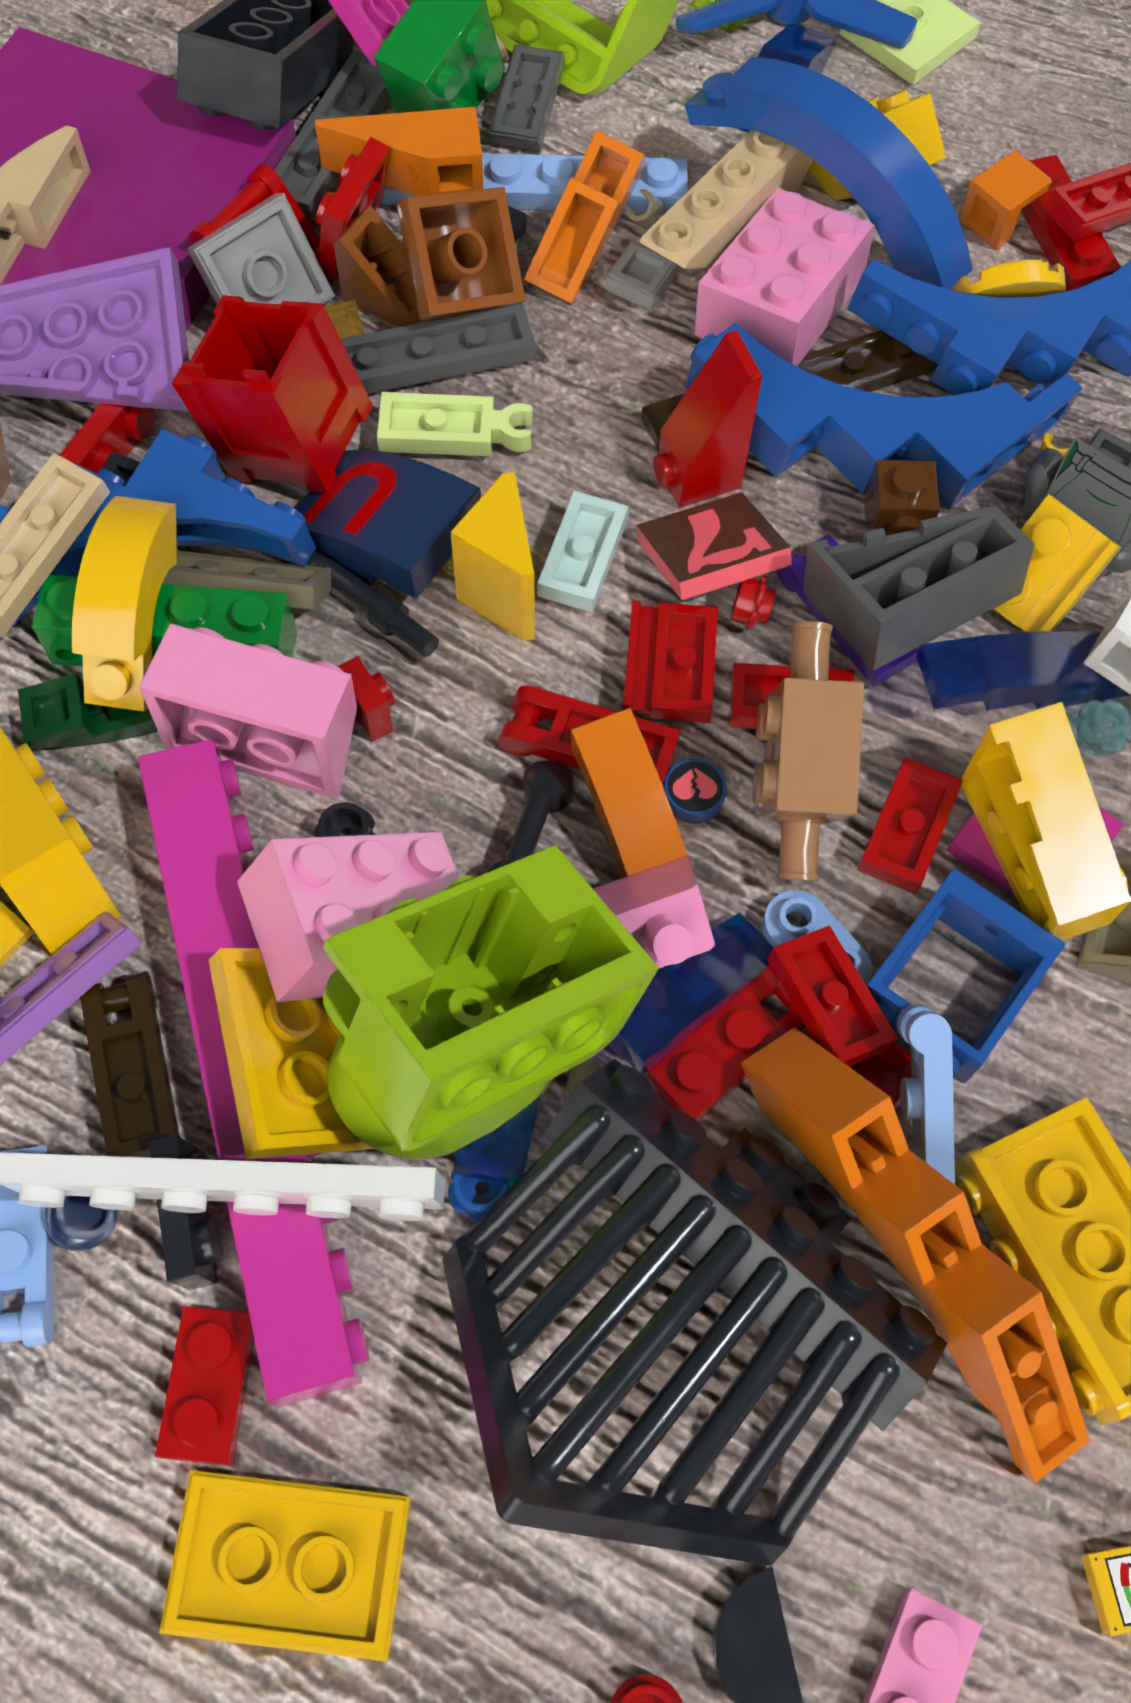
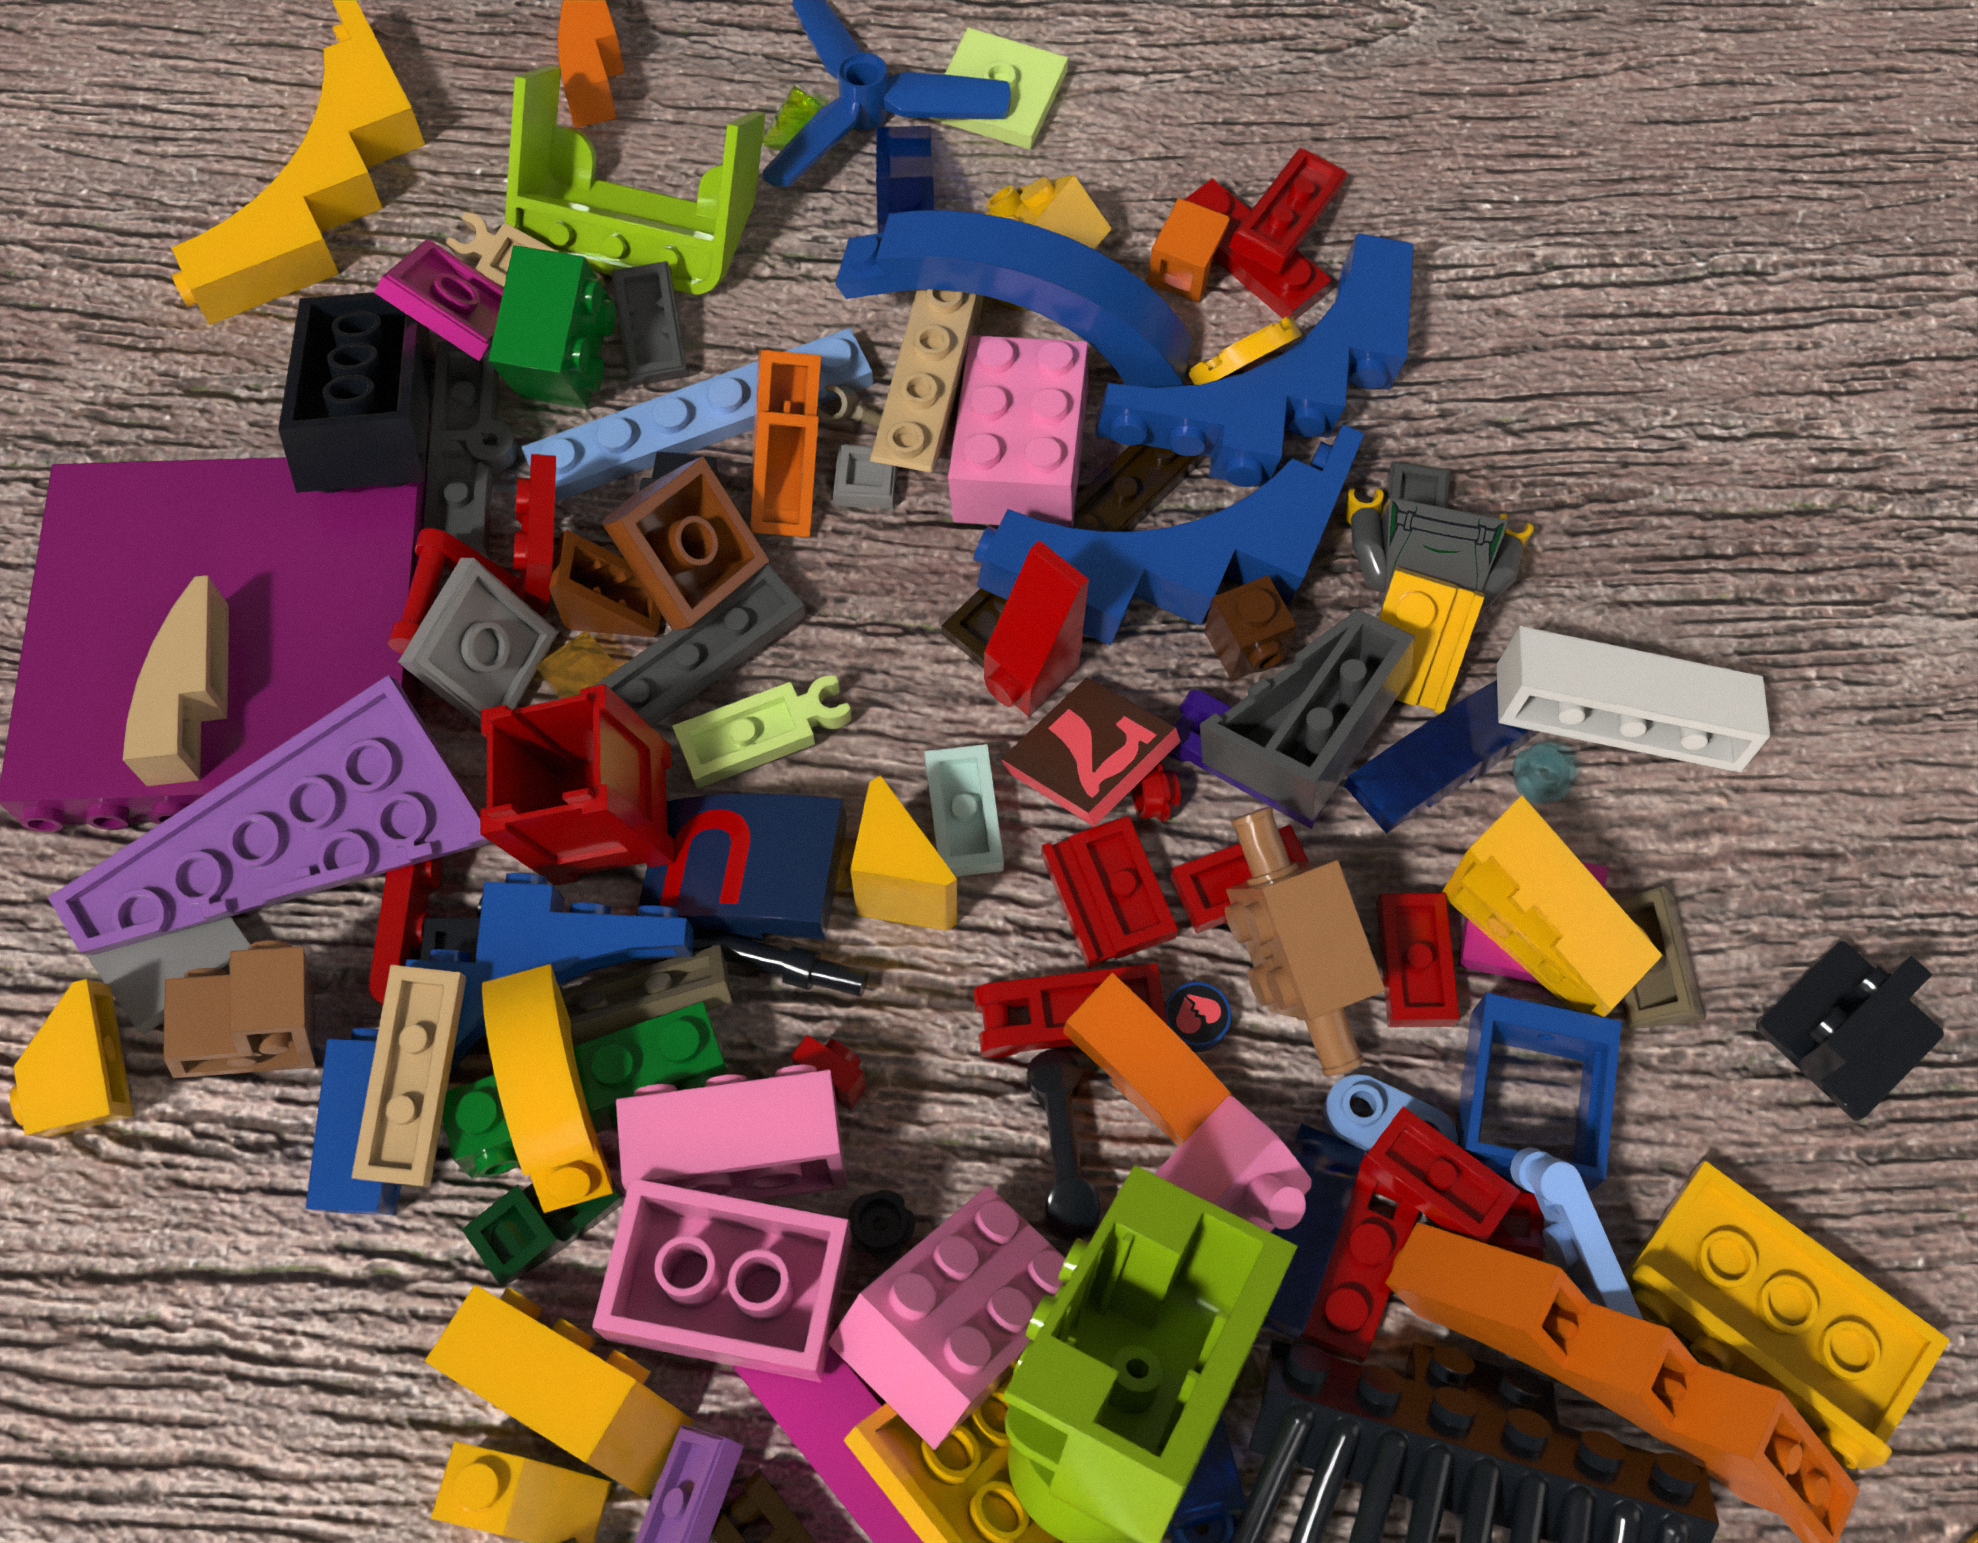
camera: 25 degrees left, 0 degrees up
(180, 794) = (724, 1280): none -> bright pink brick
(427, 151) = (594, 435): orange slope -> none

